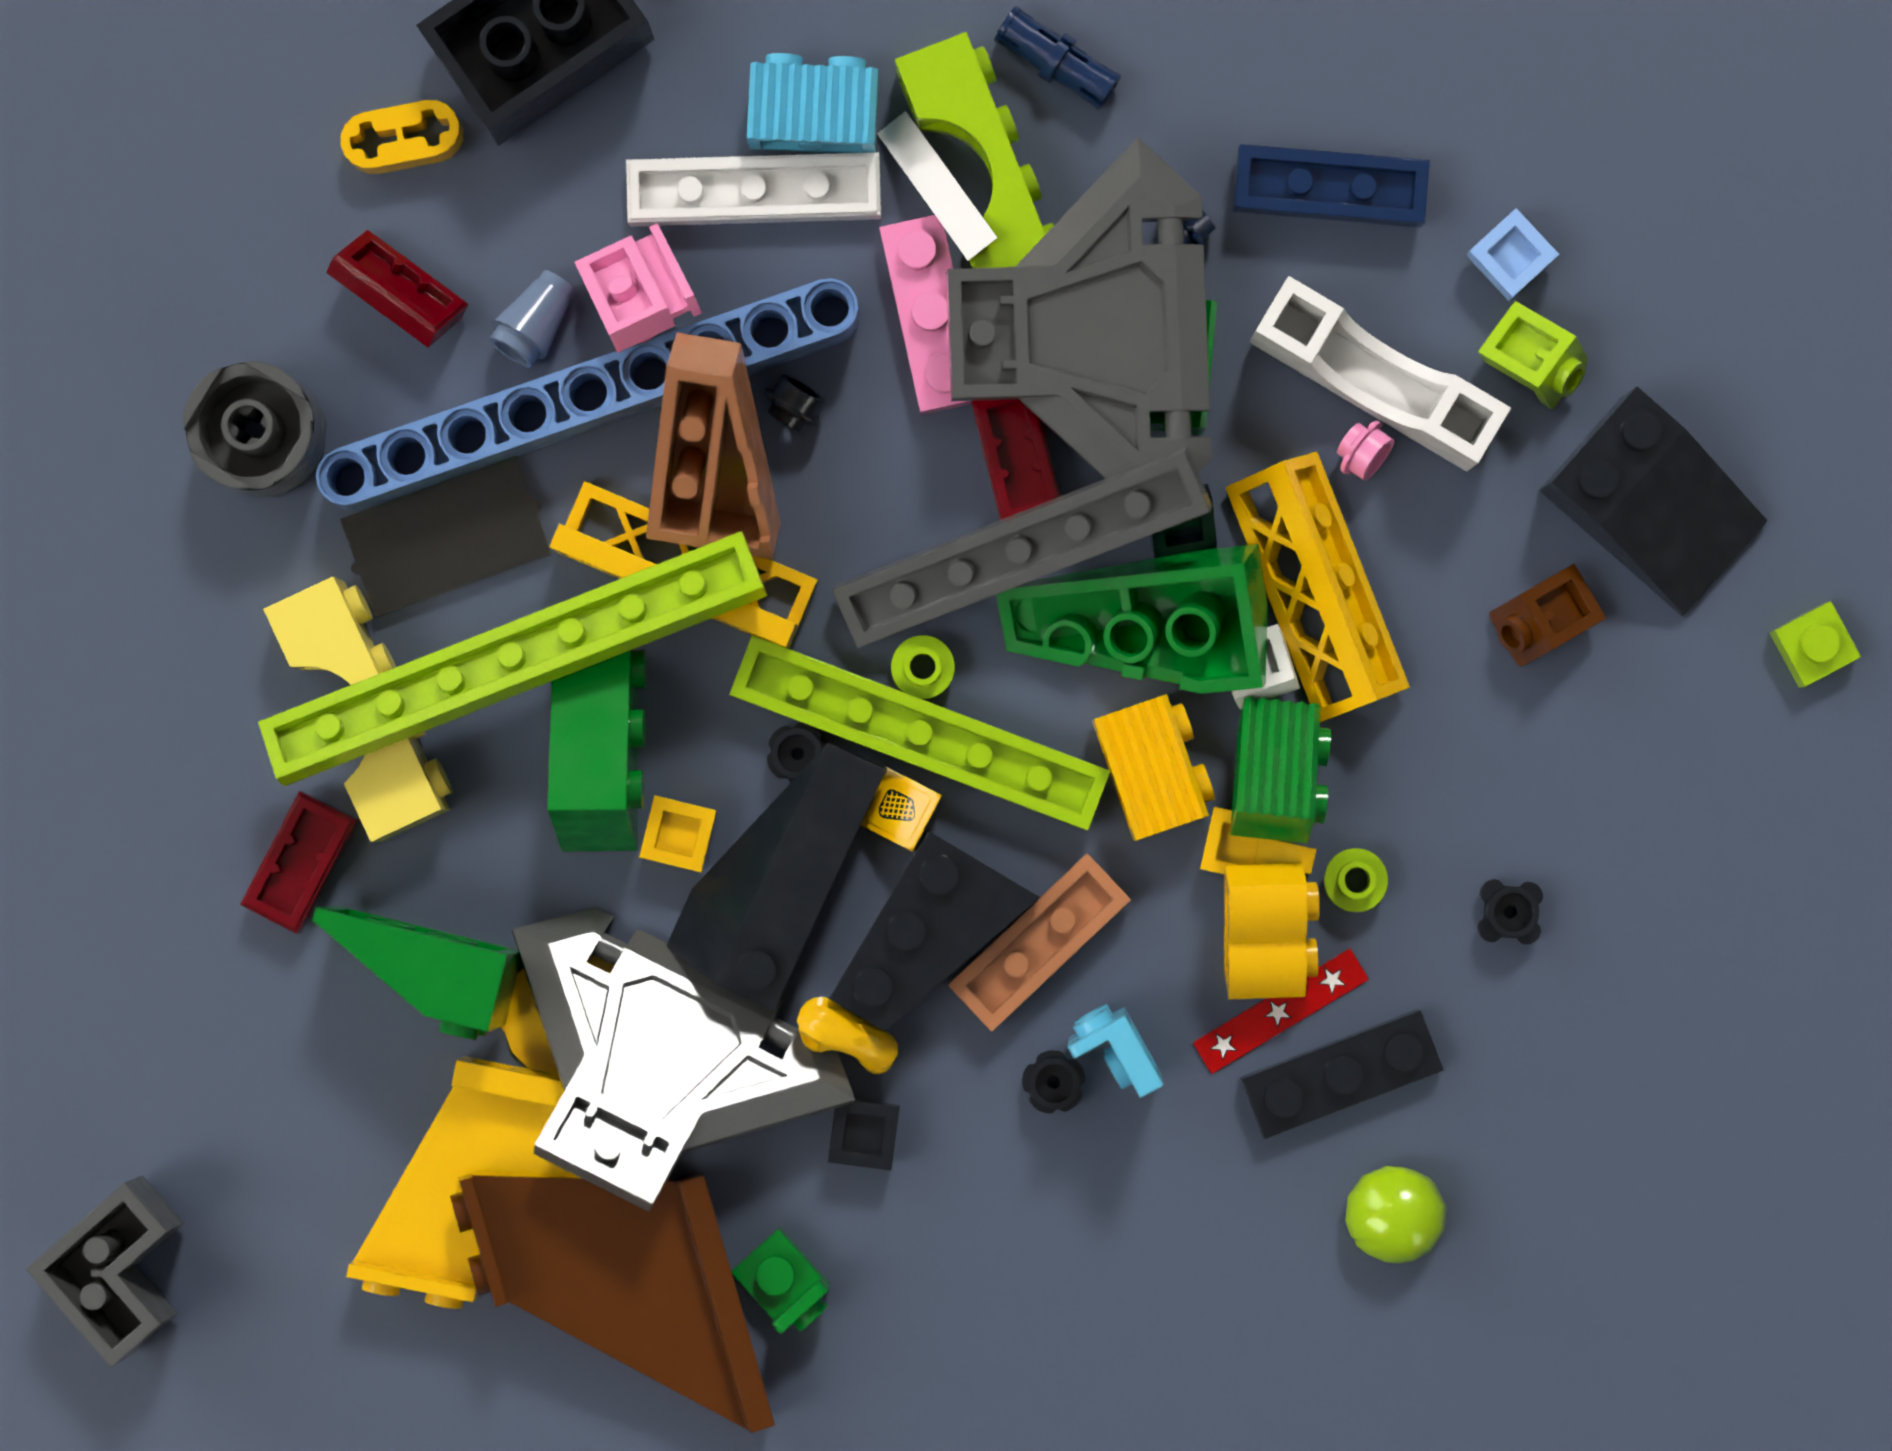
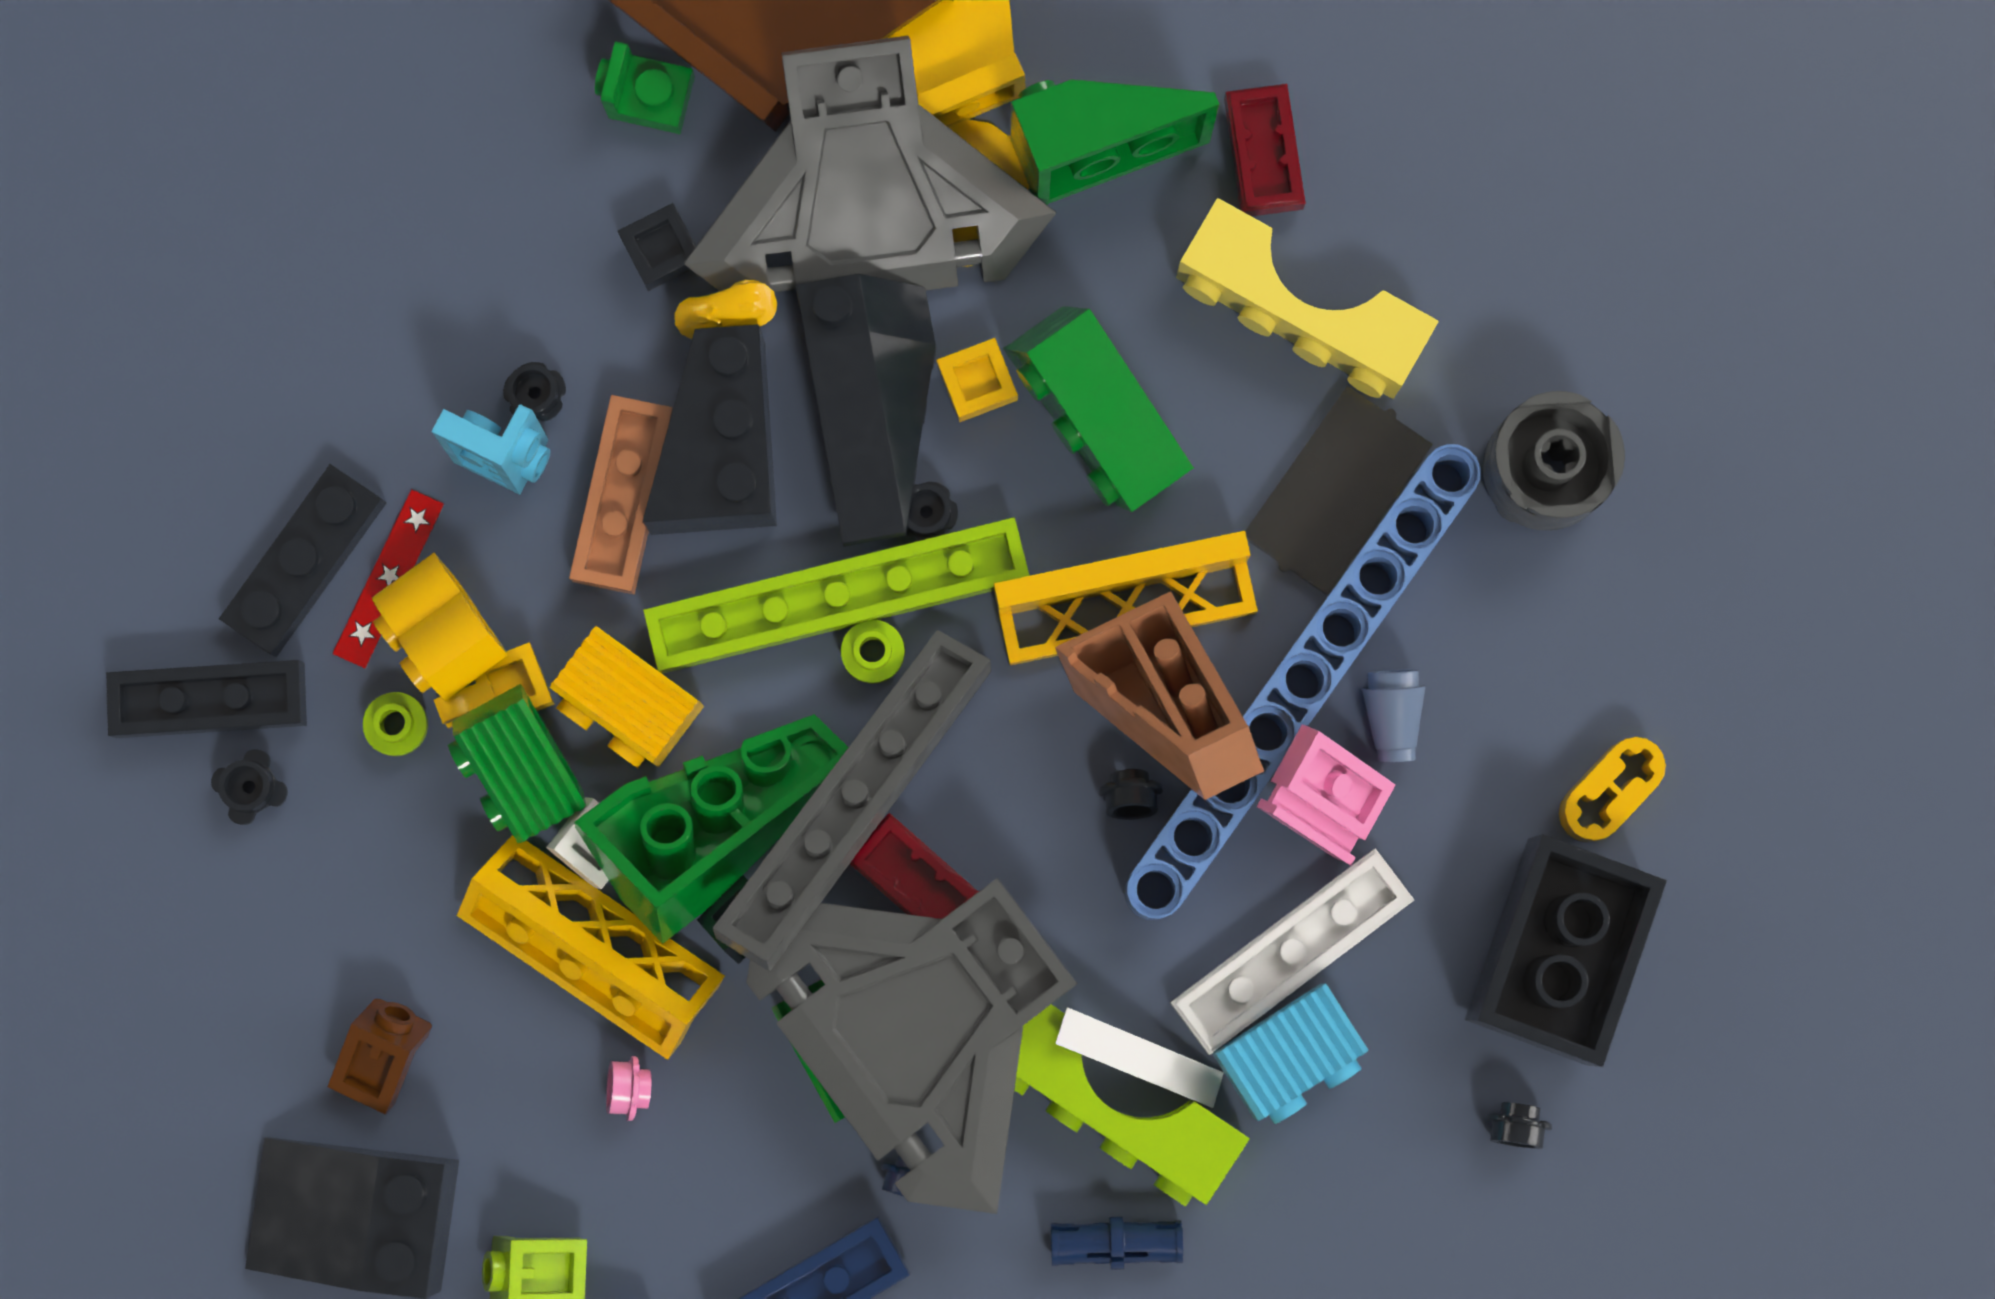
camera: 140 degrees right, 5 degrees down
(397, 288) = (1523, 659): dark red plate -> none
(511, 659) = (1205, 416): lime plate -> none
(901, 809) = (808, 524): yellow slope -> none
(917, 269) = (1105, 976): bright pink plate -> none
(1395, 1214) = (182, 477): lime hair -> none
(1410, 397) = (654, 1157): white arch -> none
(1497, 1008) = (206, 699): none -> black plate
(1815, 644) = (135, 1190): lime plate -> none

